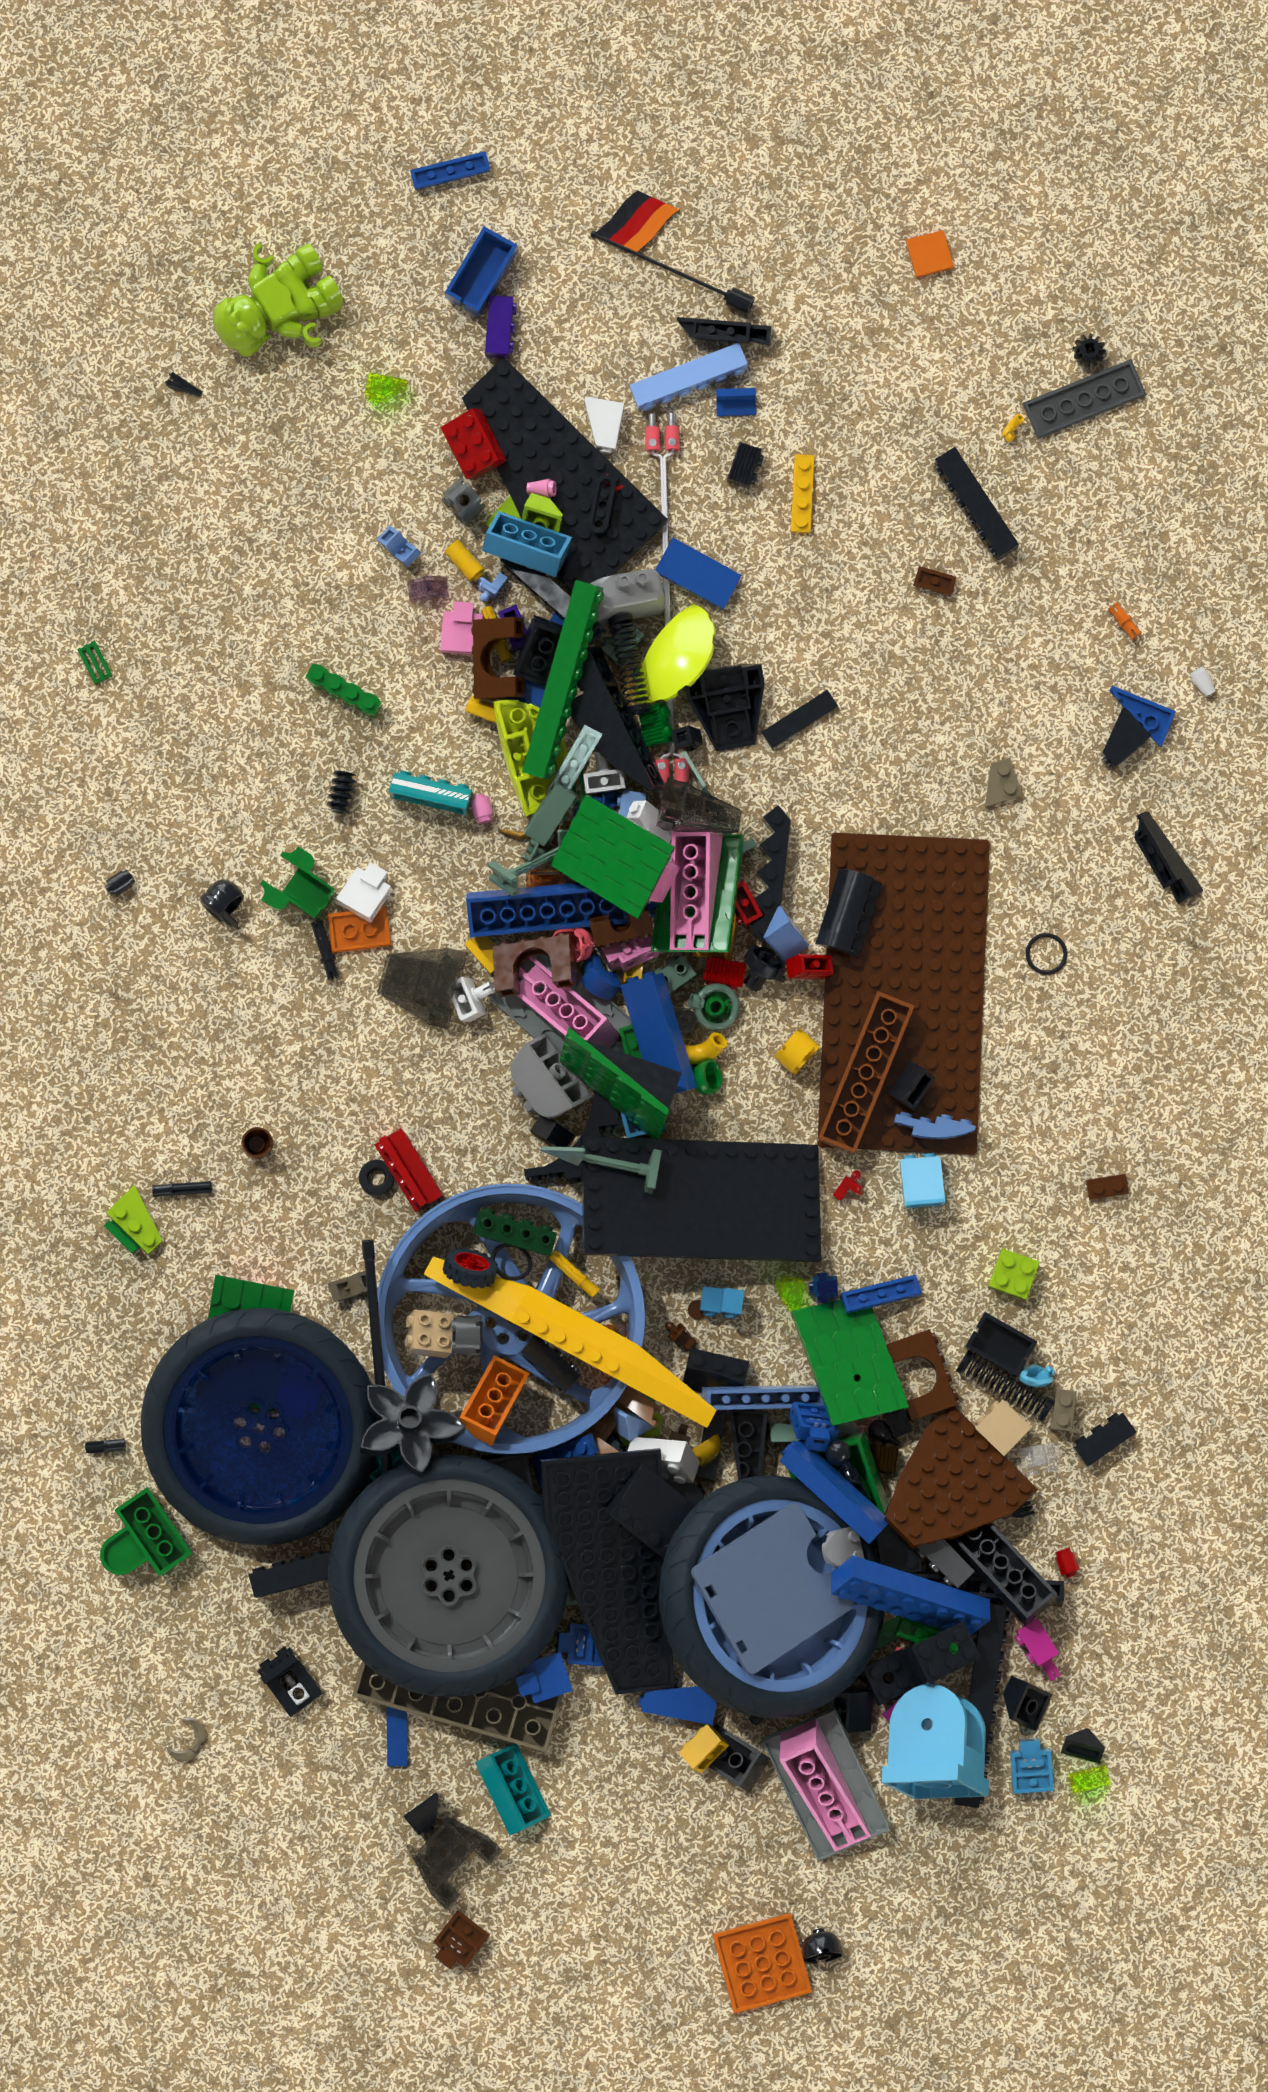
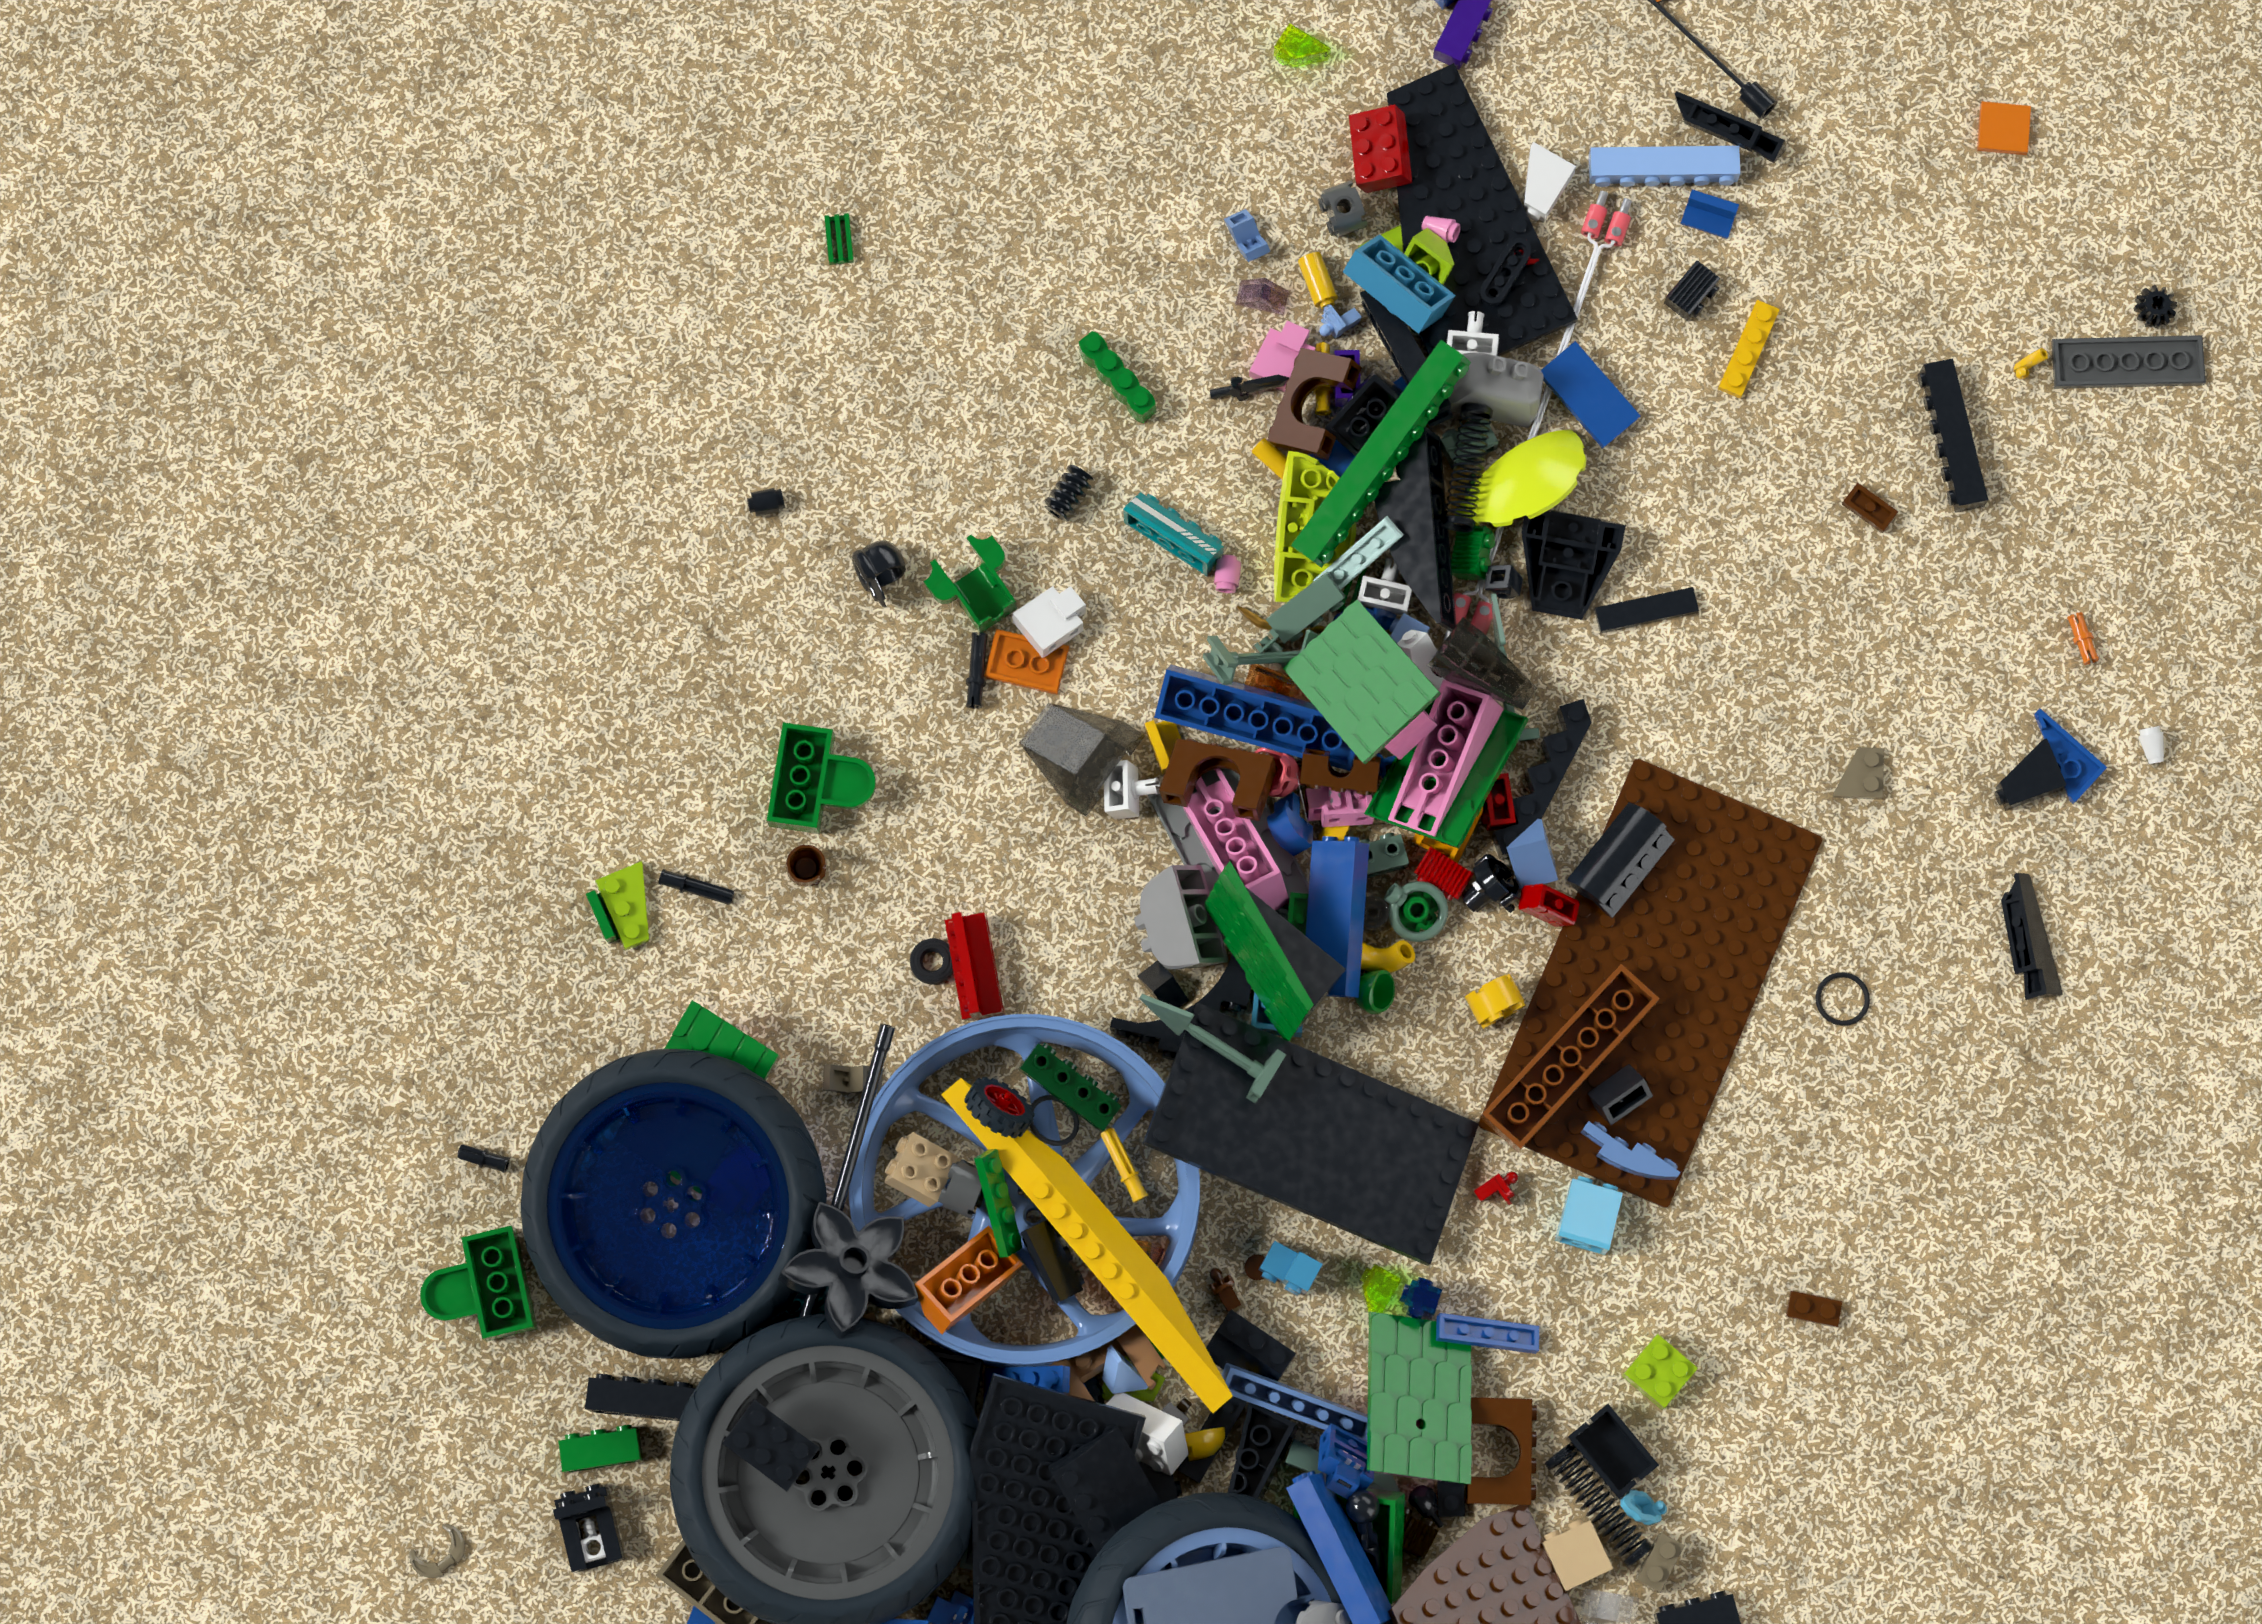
camera: 20 degrees right, 5 degrees down
(236, 1076) = (812, 777): none -> green brick
(275, 1622) = (600, 1449): none -> green brick
(402, 1572) = (770, 1445): none -> black brick
(440, 666) = (1236, 388): none -> black sword
(495, 1336) = (998, 1202): none -> green plate
(597, 568) = (1474, 340): none -> white brick

